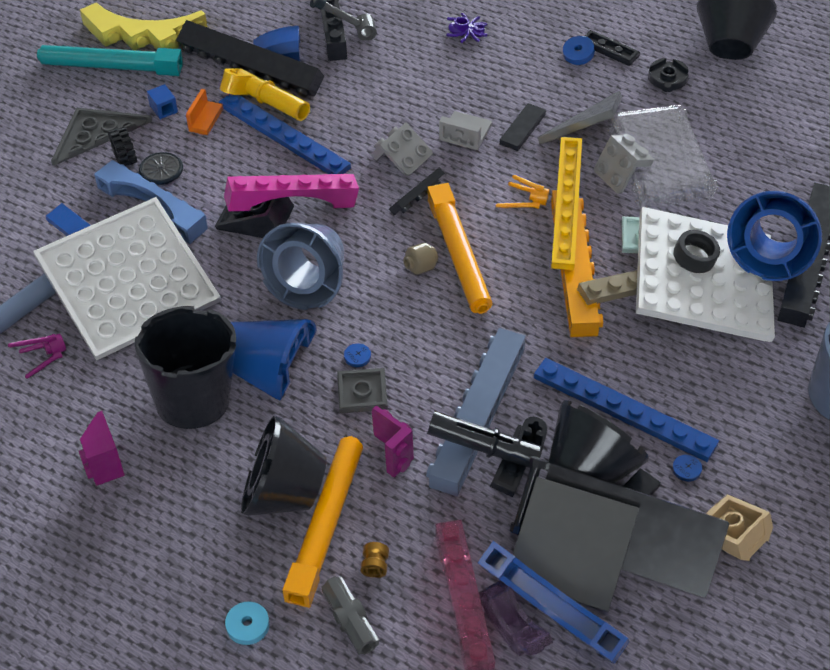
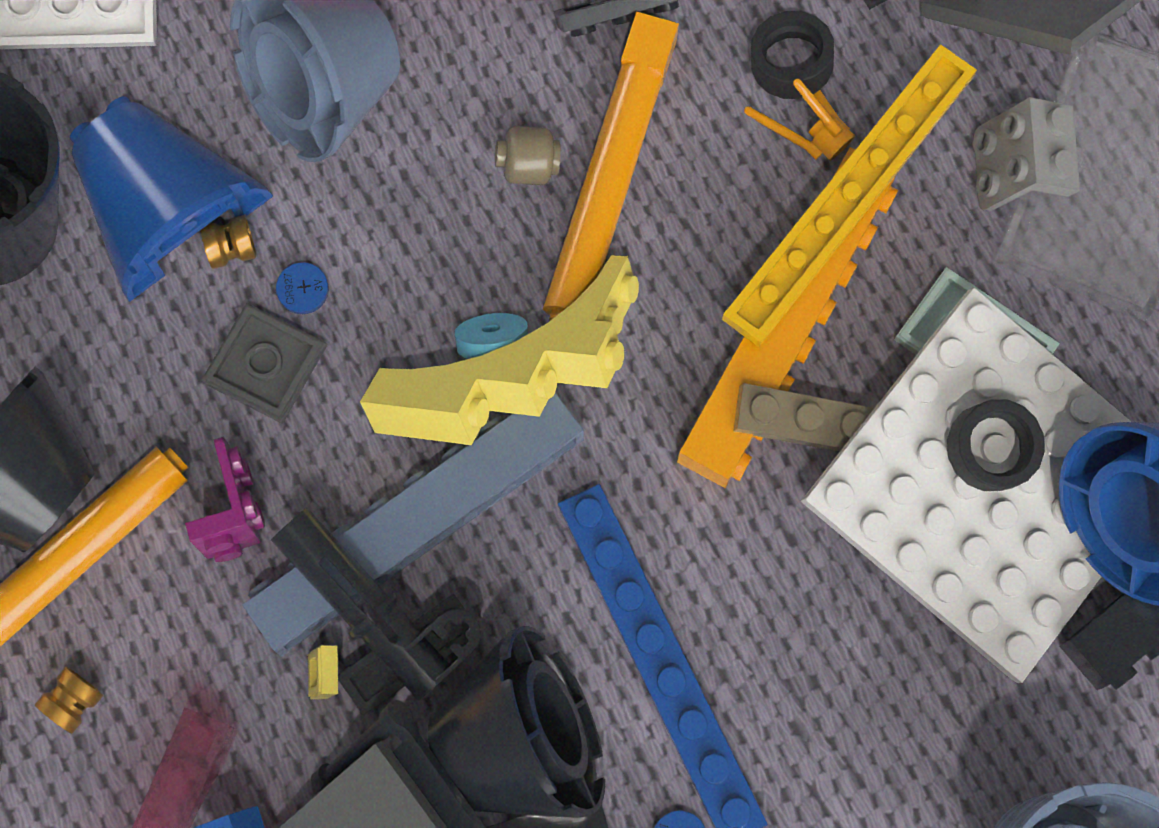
camera: 30 degrees right, 25 degrees up
(312, 351) = (218, 245): none -> pearl gold wheel
(458, 325) = (488, 333): none -> medium azure piece
(483, 328) = (519, 378): none -> light yellow arch
(484, 486) = (323, 672): none -> light yellow tile
(498, 165) = (792, 25): none -> black tyre

